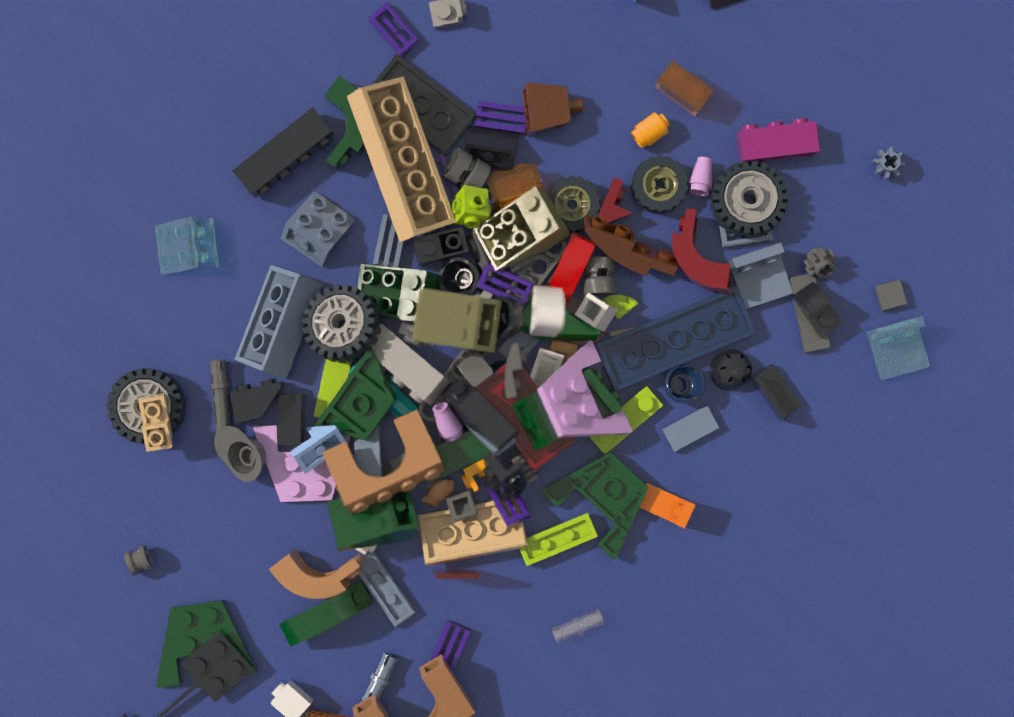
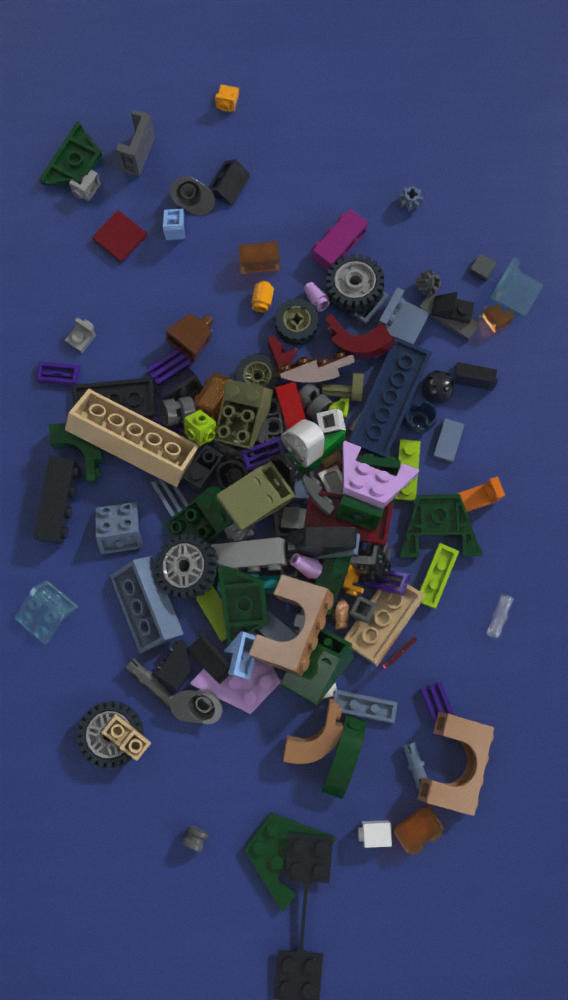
camera: 50 degrees left, 10 degrees down
(647, 302) = (353, 392): none -> olive piece
(853, 356) = (497, 318): none -> clear orange panel

